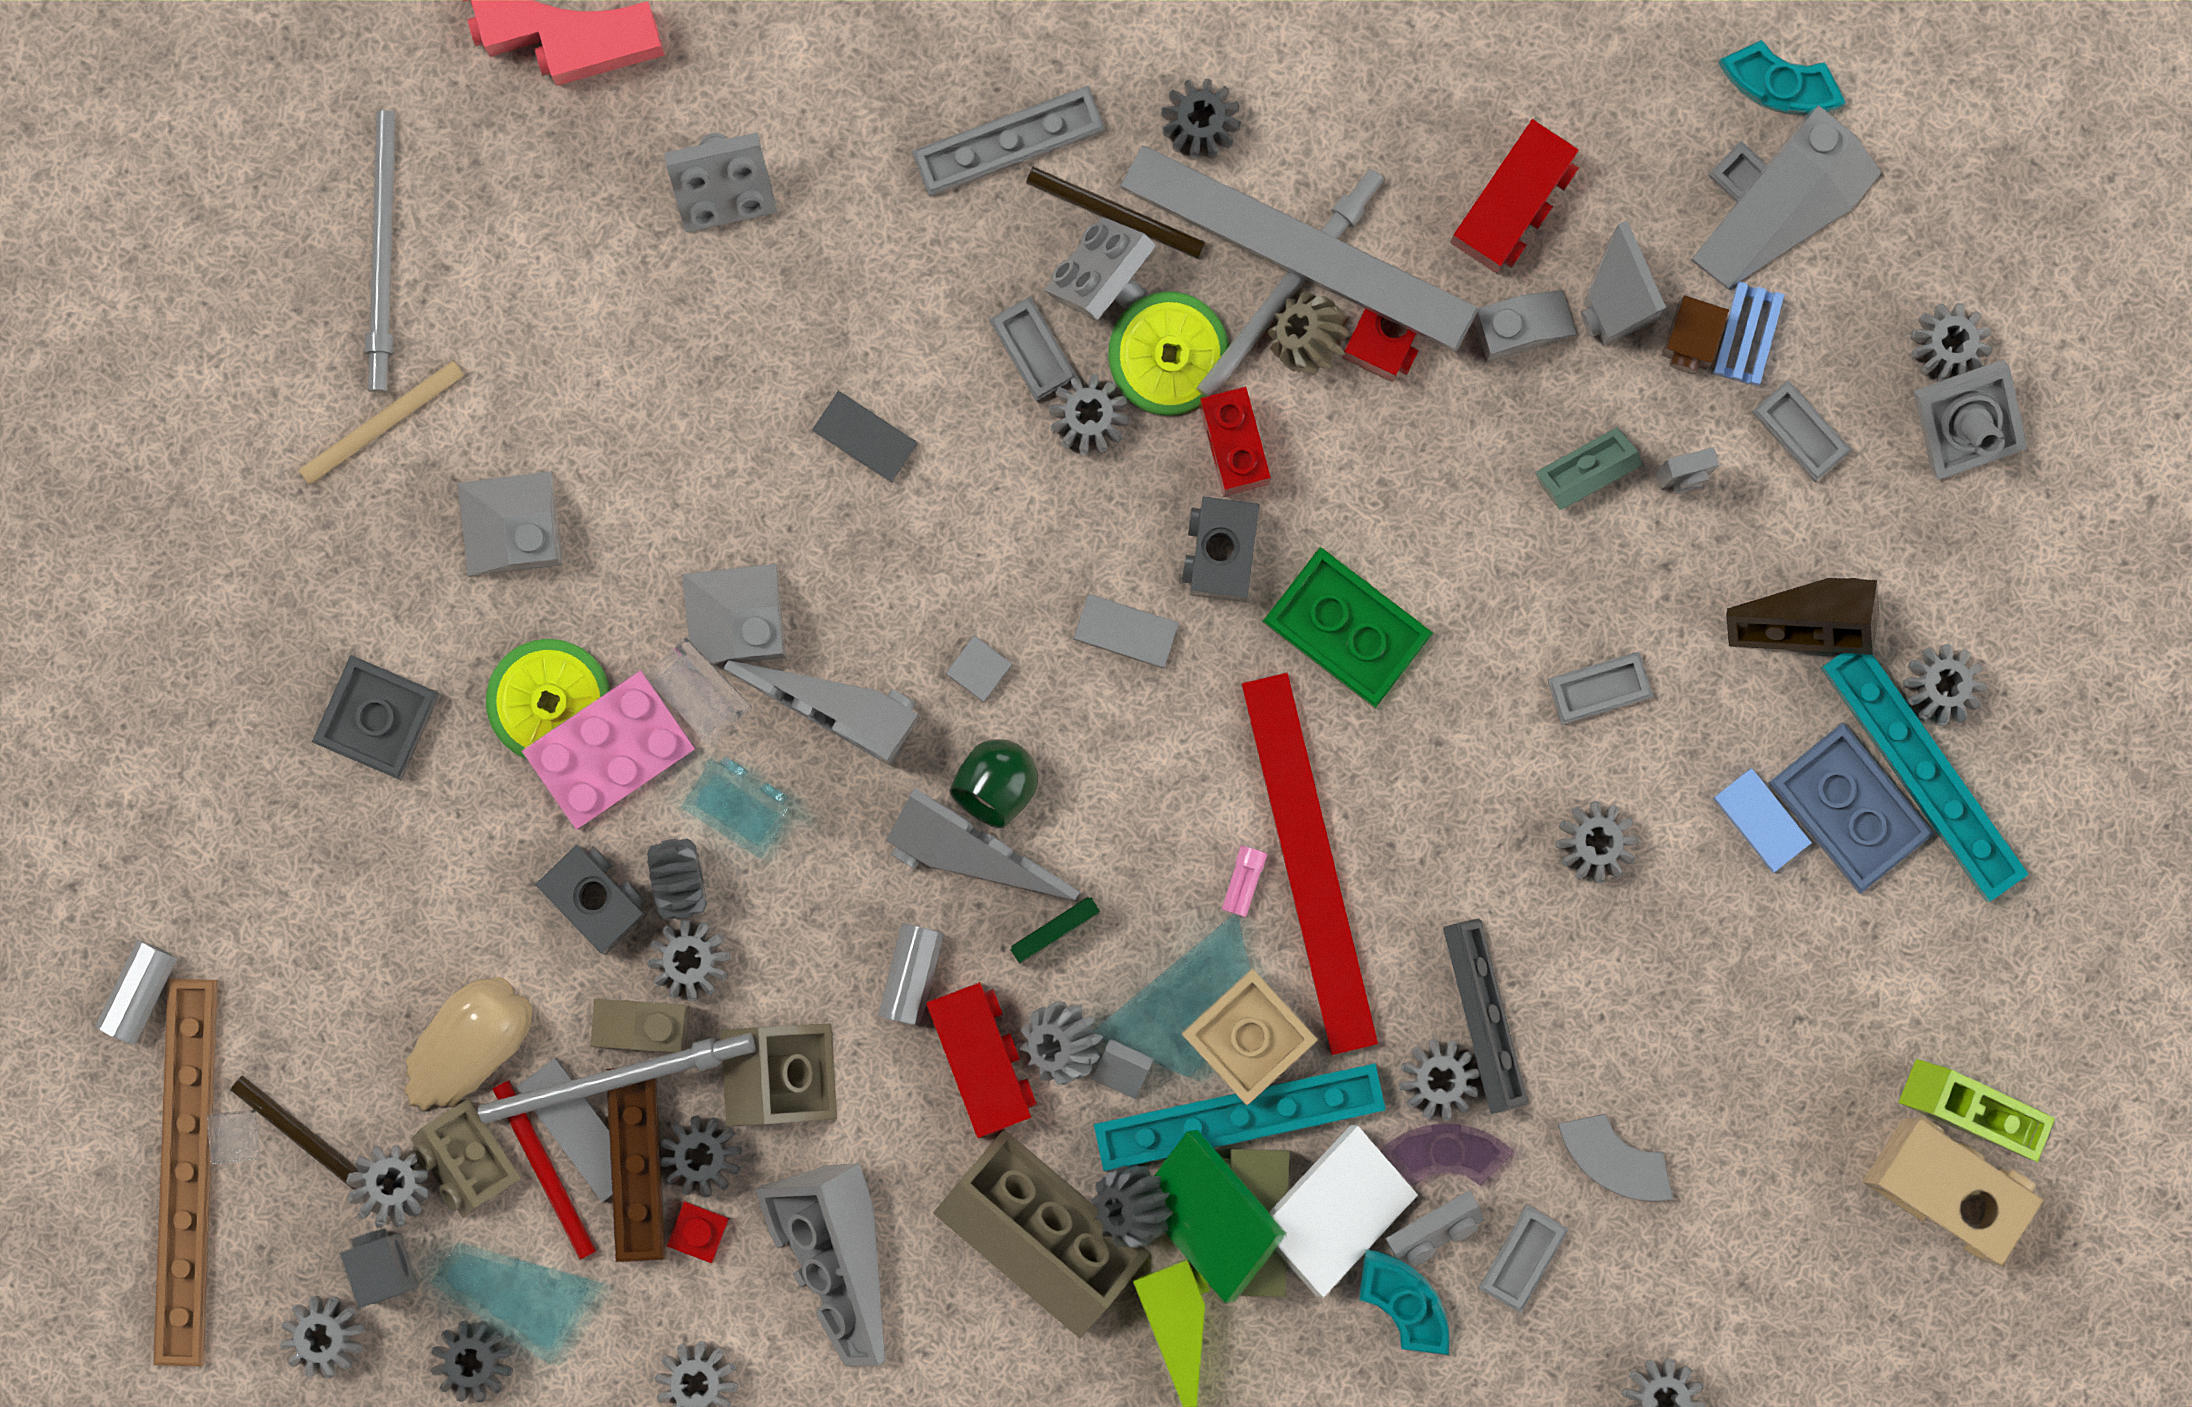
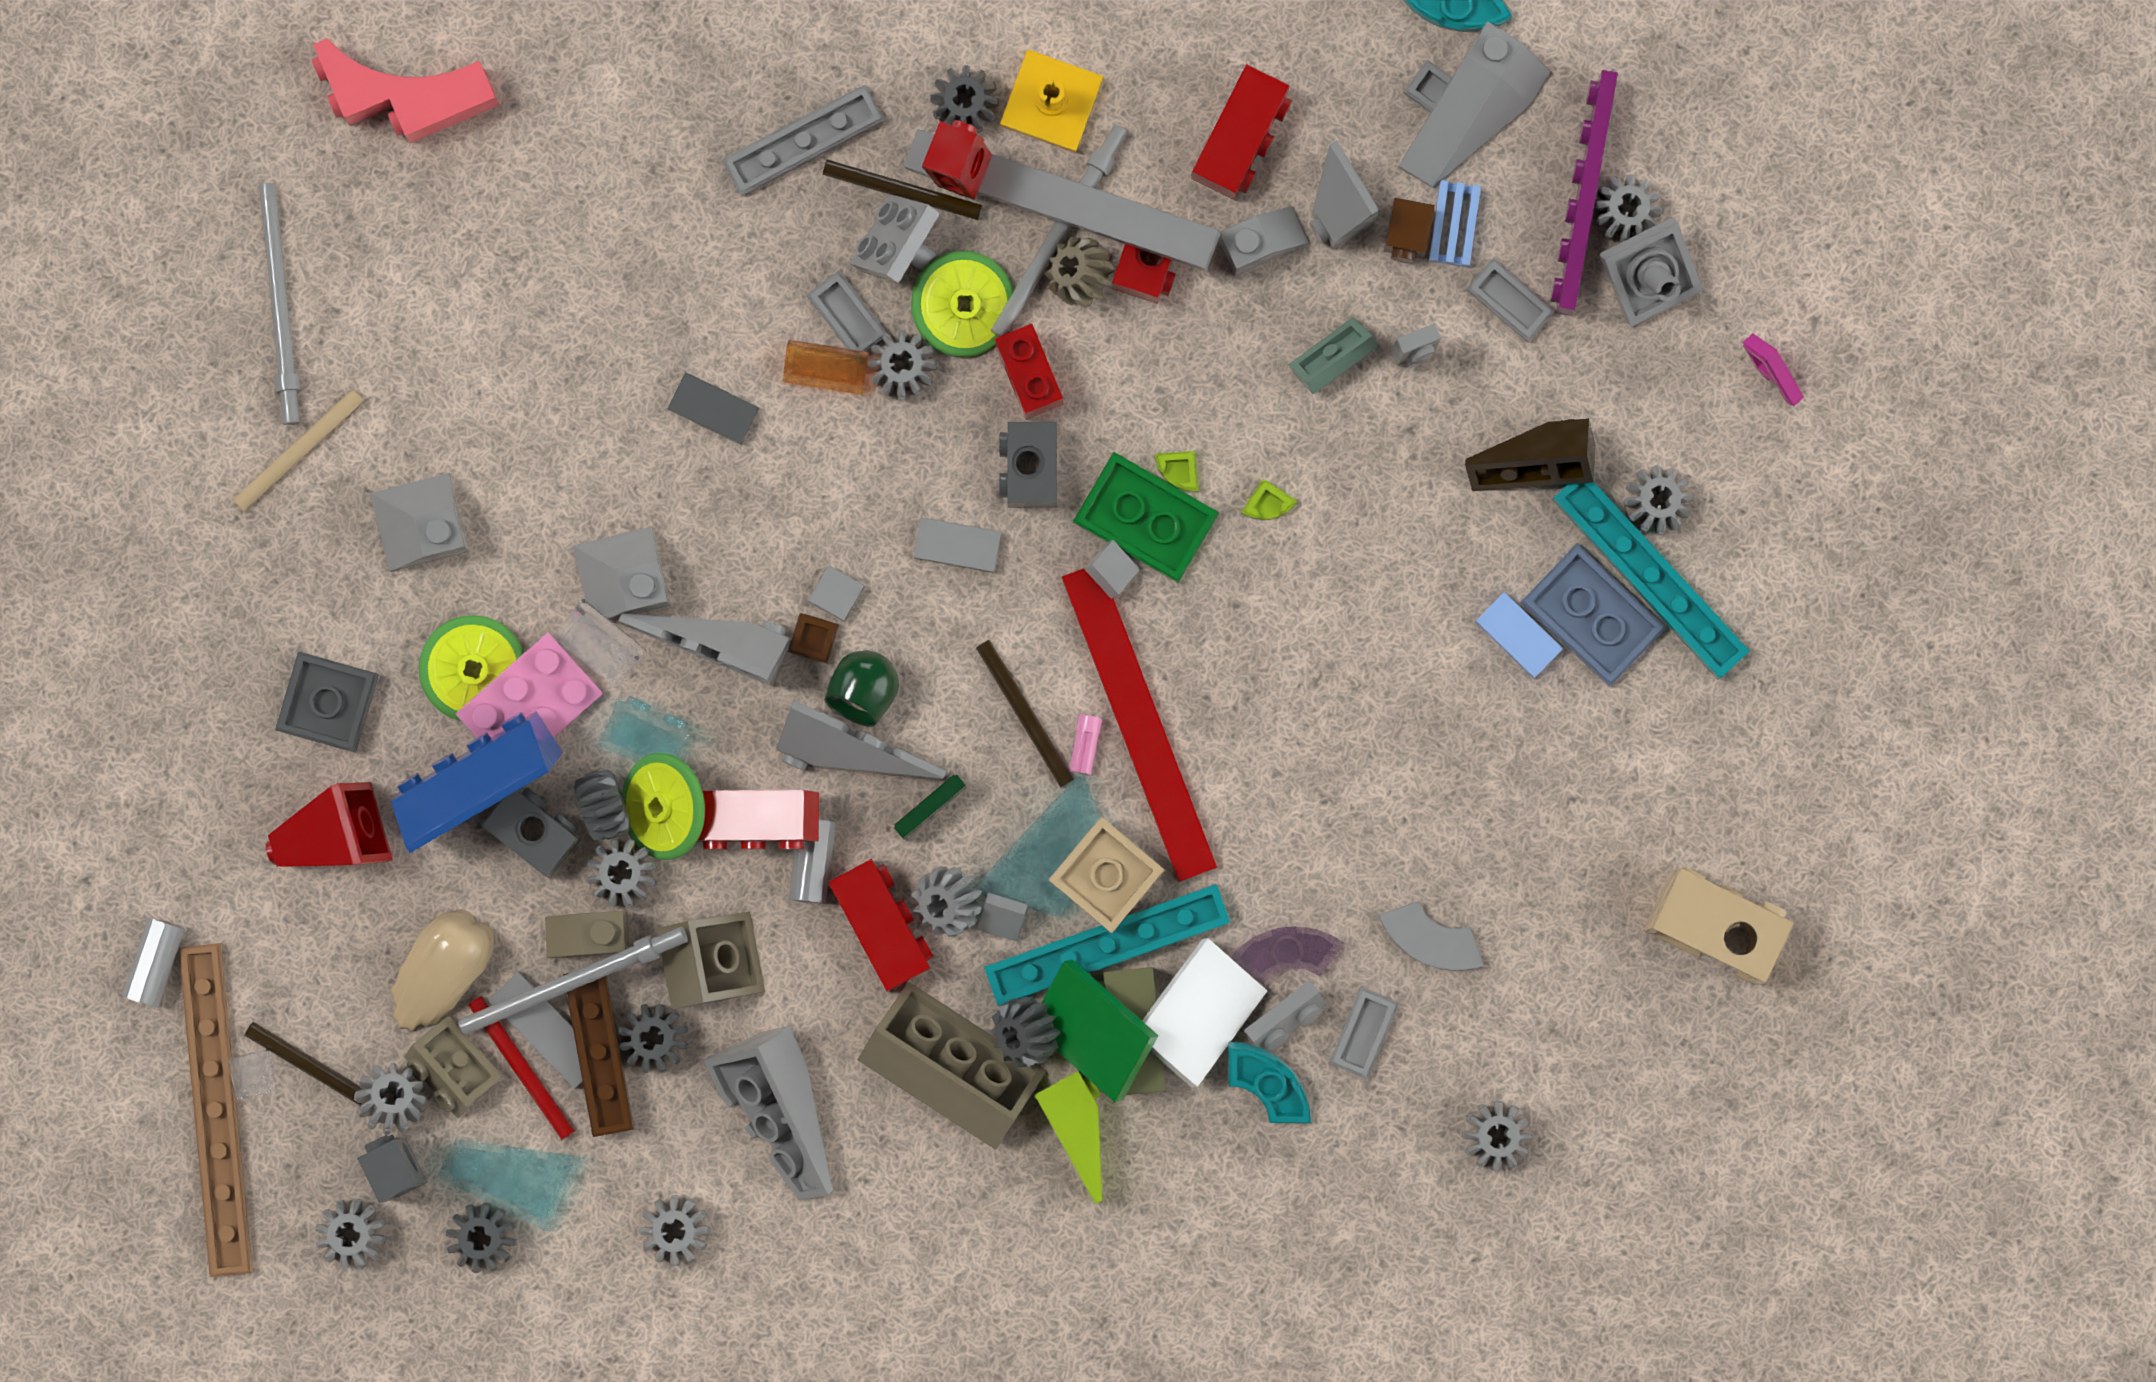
camera: 10 degrees left, 0 degrees up
(363, 868) = (332, 830): none -> red slope
(533, 831) = (474, 780): none -> blue slope
(698, 1232) = (659, 1103): red plate -> none
(720, 181) = (561, 206): light grey plate -> none
(748, 889) = (664, 805): none -> neon yellow wheel
(849, 917) = (760, 818): none -> brick
(946, 717) = (813, 638): none -> reddish brown tile
(1000, 405) = (825, 367): none -> clear orange tile
(1178, 836) = (1024, 713): none -> dark brown bar
(1184, 185) = (957, 158): none -> red brick
(1300, 132) = (1051, 101): none -> yellow tile
(1301, 682) = (1112, 569): none -> light grey tile
(1393, 577) = (1179, 469): none -> lime tile
(1438, 1095) = (1274, 904): light grey gear -> none
(1485, 1015) = (1304, 831): dark grey tile -> none
(1491, 628) = (1268, 502): none -> lime tile
(1586, 854) = (1373, 683): light grey gear -> none
(1600, 688) = (1367, 541): light grey tile -> none
(1909, 298) = (1580, 210): none -> magenta plate
(1976, 1109) = (1731, 856): lime slope -> none
(2096, 546) = (1772, 367): none -> dark pink tile

